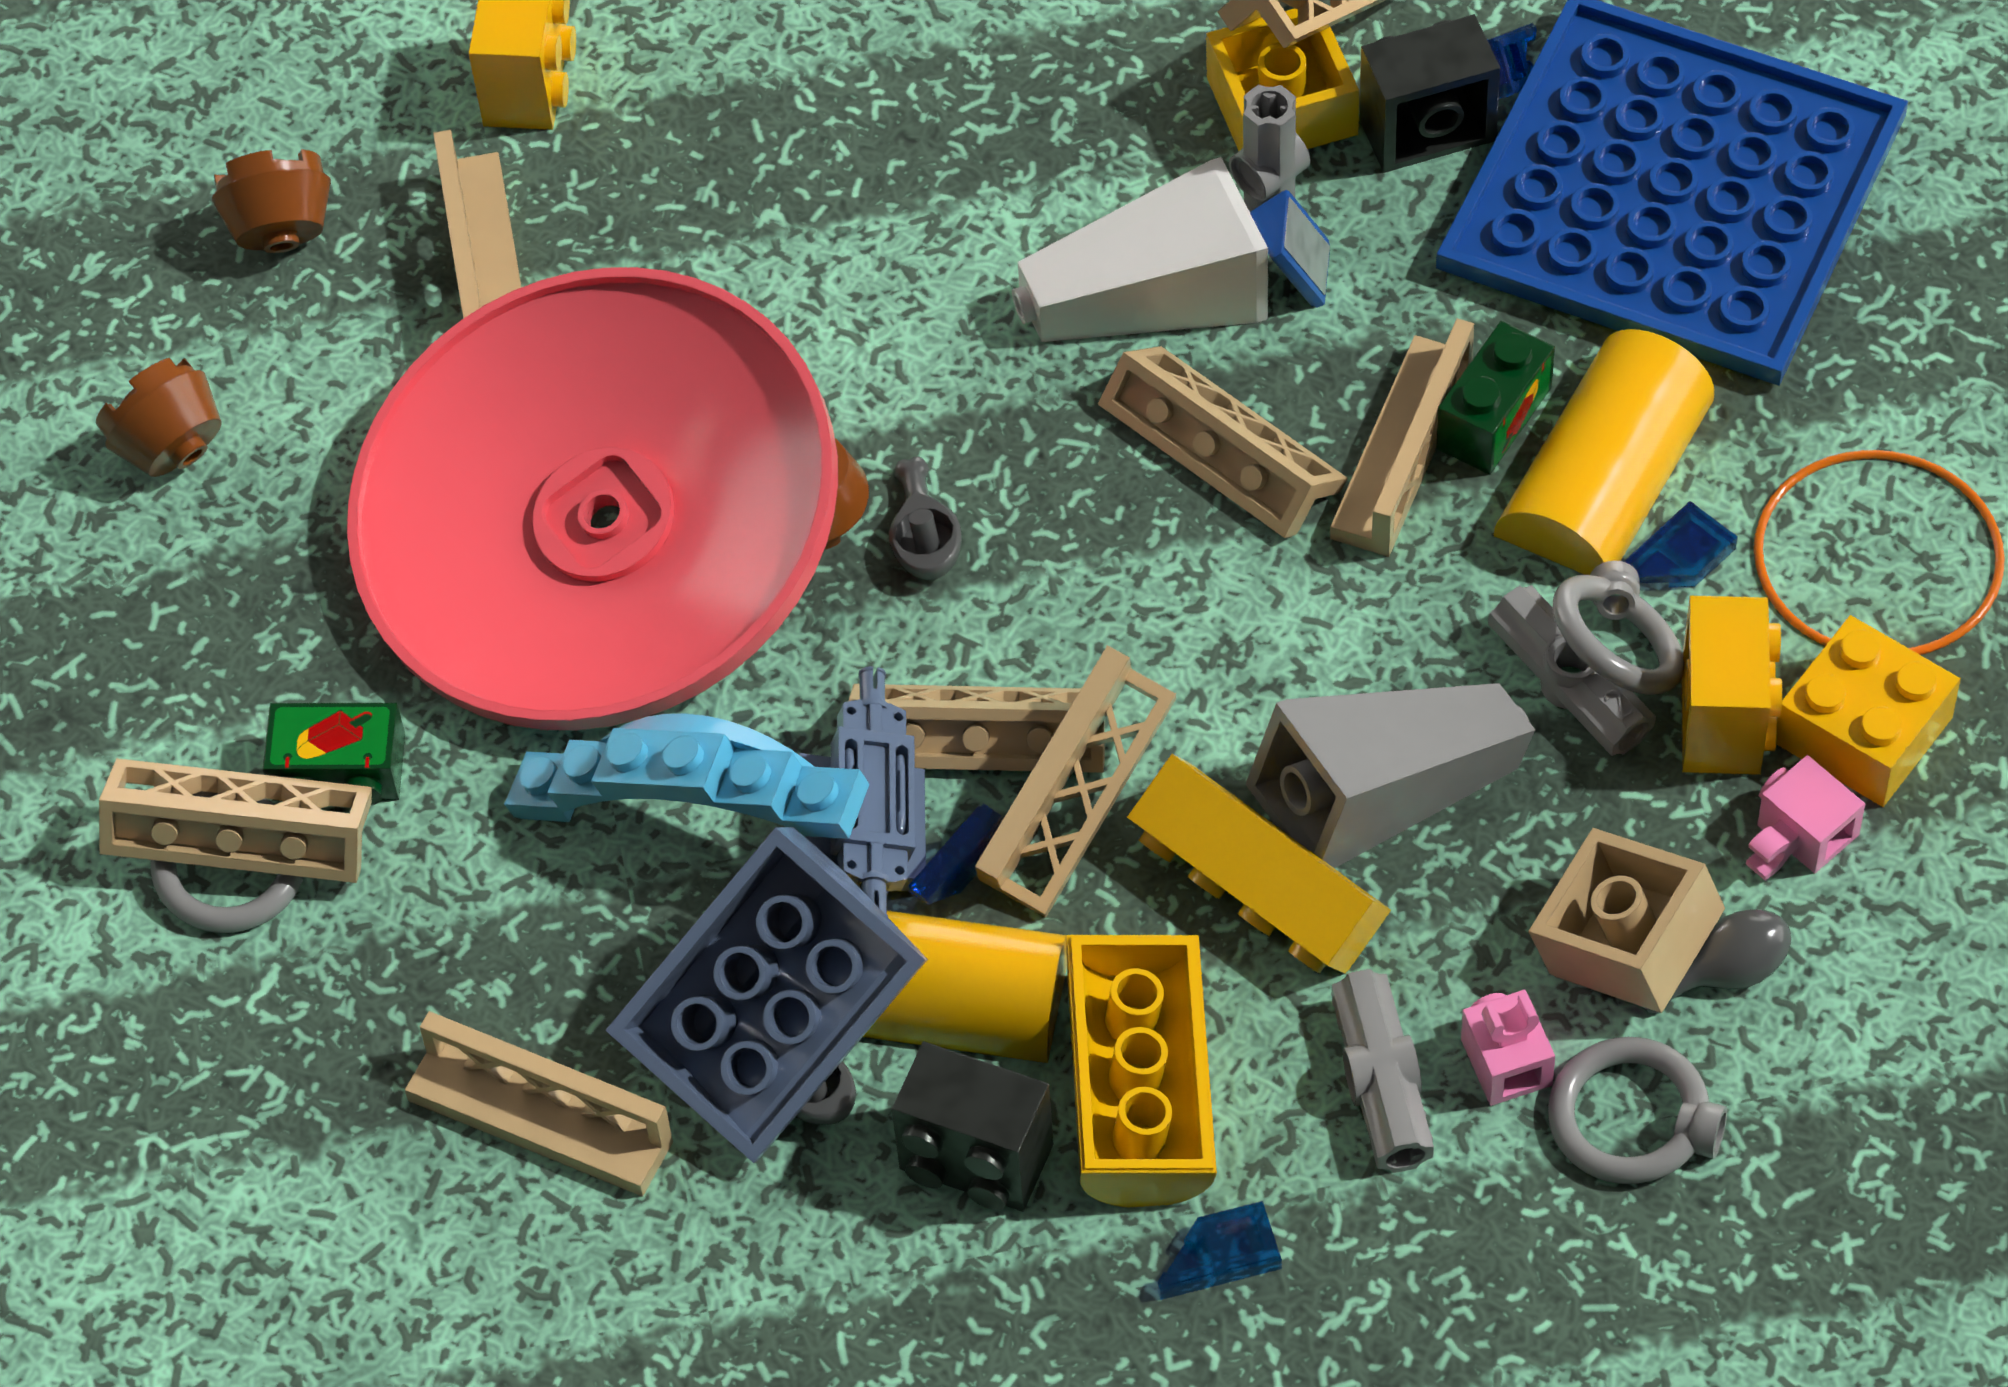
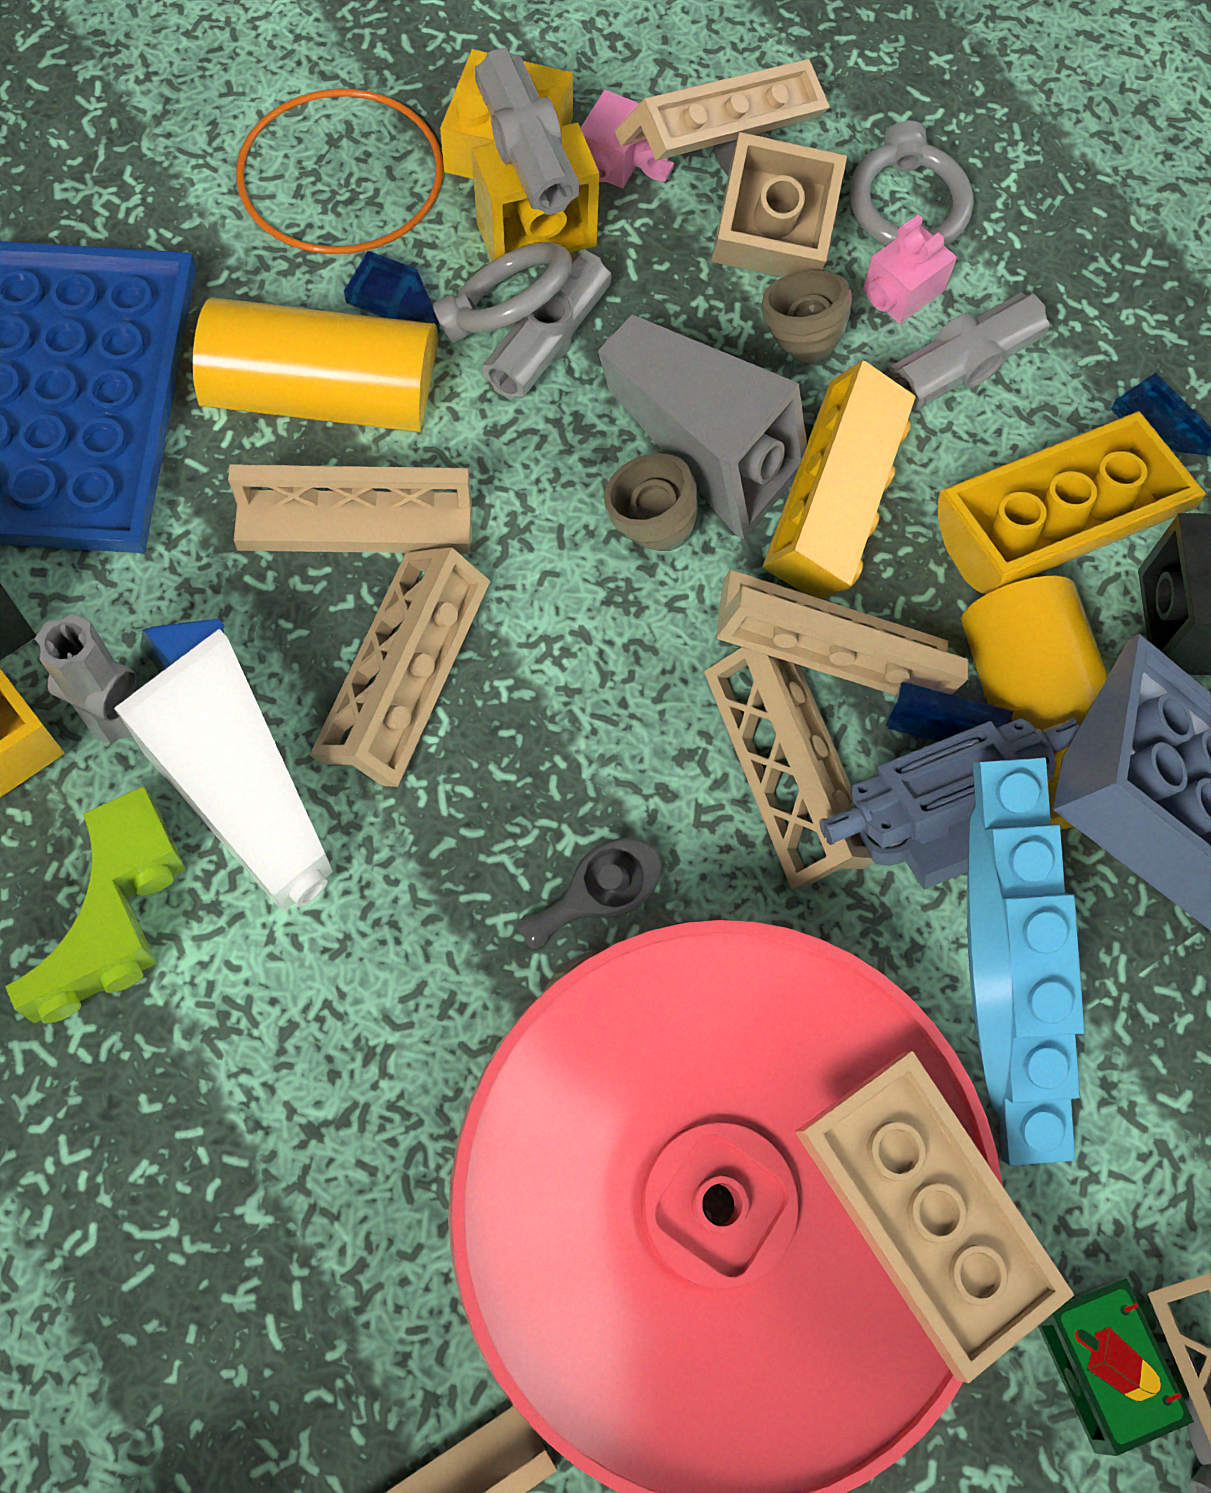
camera: 120 degrees left, 10 degrees up
(510, 629) = (935, 1216): none -> tan plate
(1055, 158) = (105, 943): none -> lime arch
(1296, 665) = (653, 501): none -> dark tan hat
(1482, 907) = (807, 313): none -> dark tan hat
(1495, 397) = (286, 435): dark green brick -> none
(1750, 631) = (526, 131): none -> light grey piece
(1778, 908) = (723, 108): none -> tan fence

